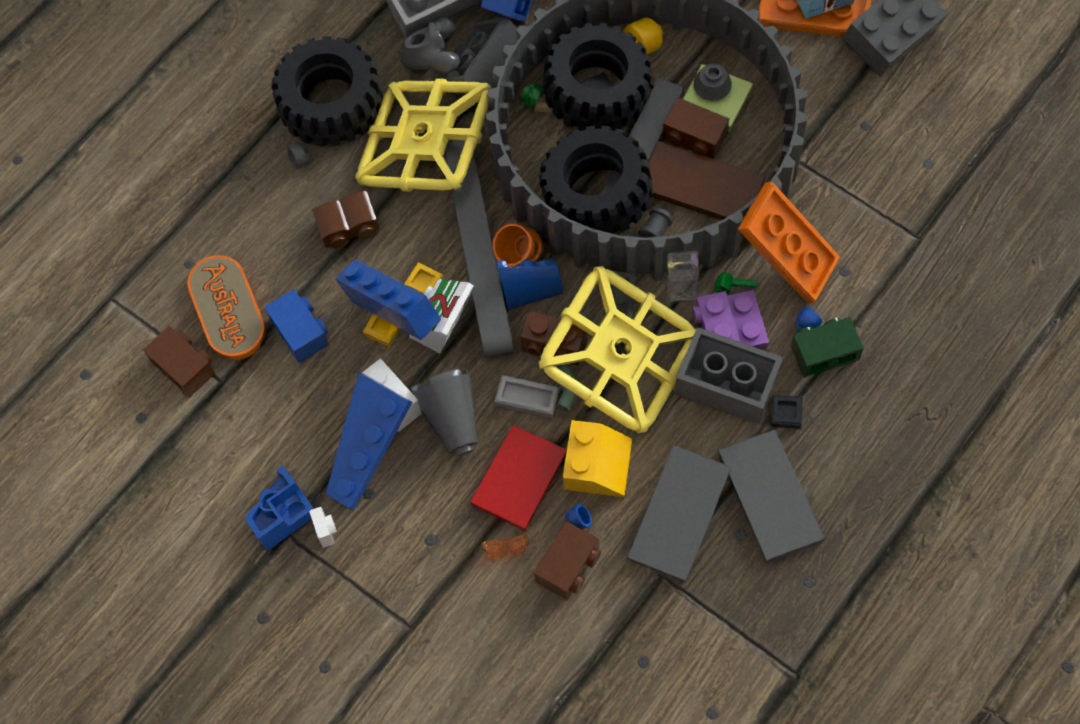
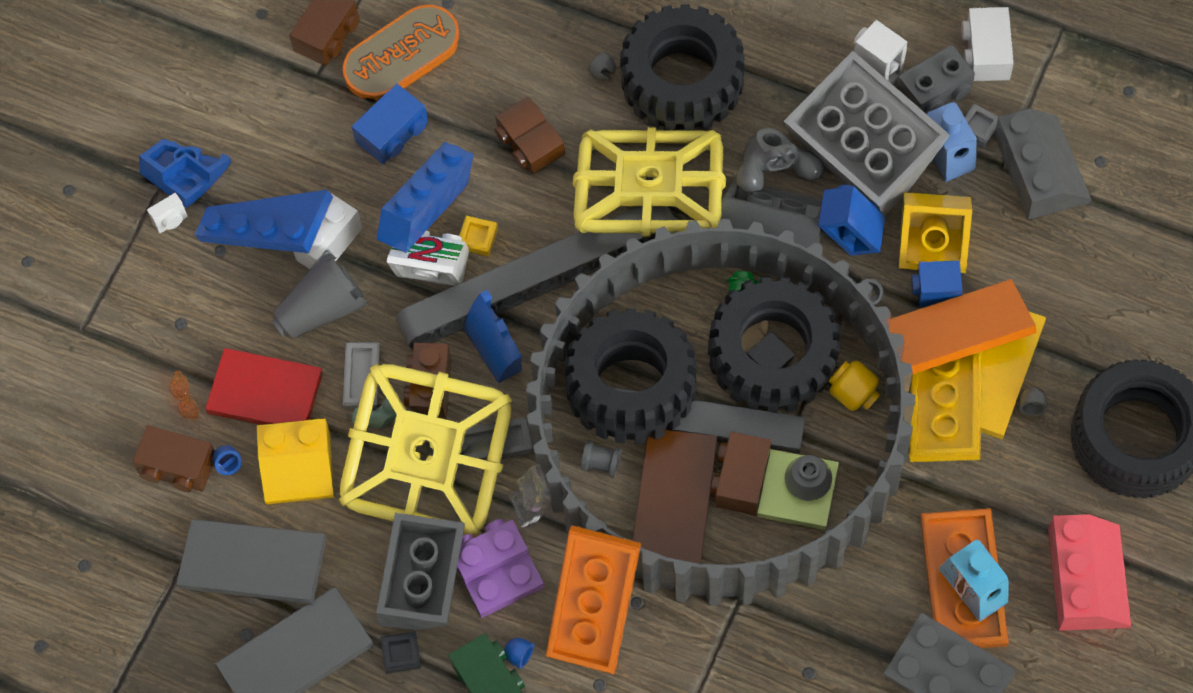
camera: 75 degrees right, 0 degrees up
(517, 243) = (533, 311): orange helmet -> none
(726, 280) = (548, 551): green hand -> none

